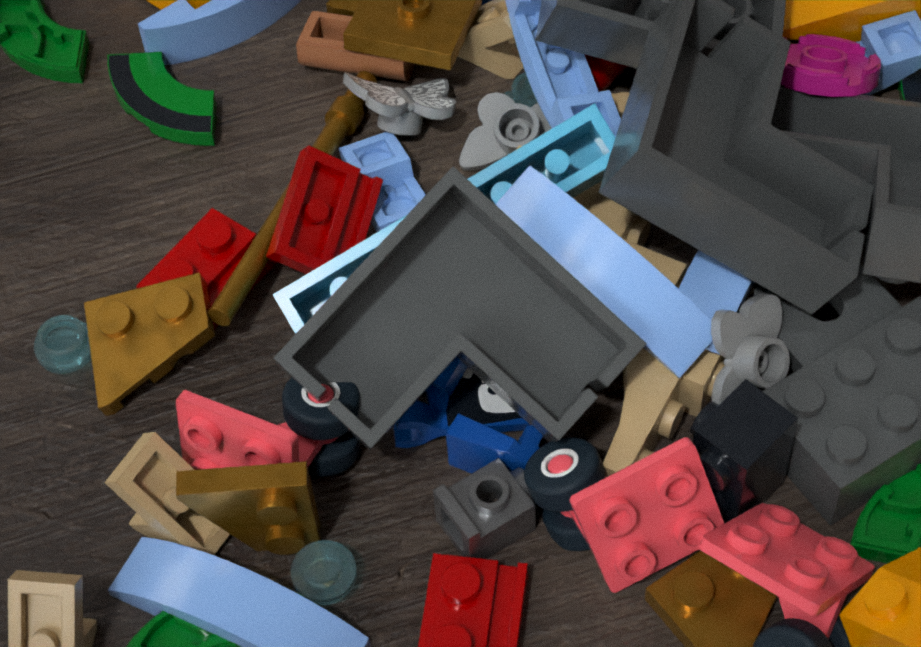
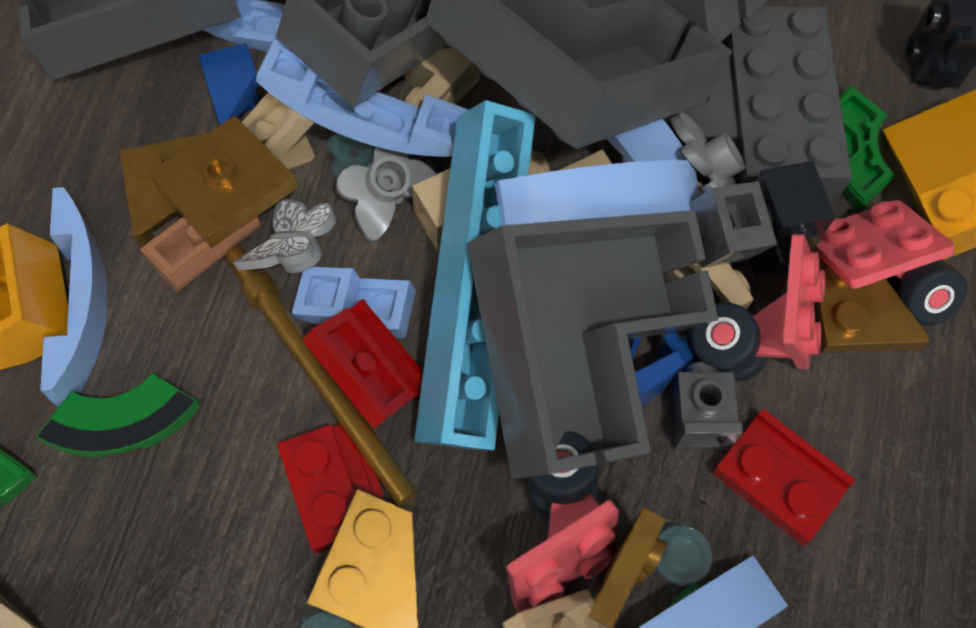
camera: 65 degrees left, 10 degrees up
(680, 365) = (732, 222): none -> flat silver brick

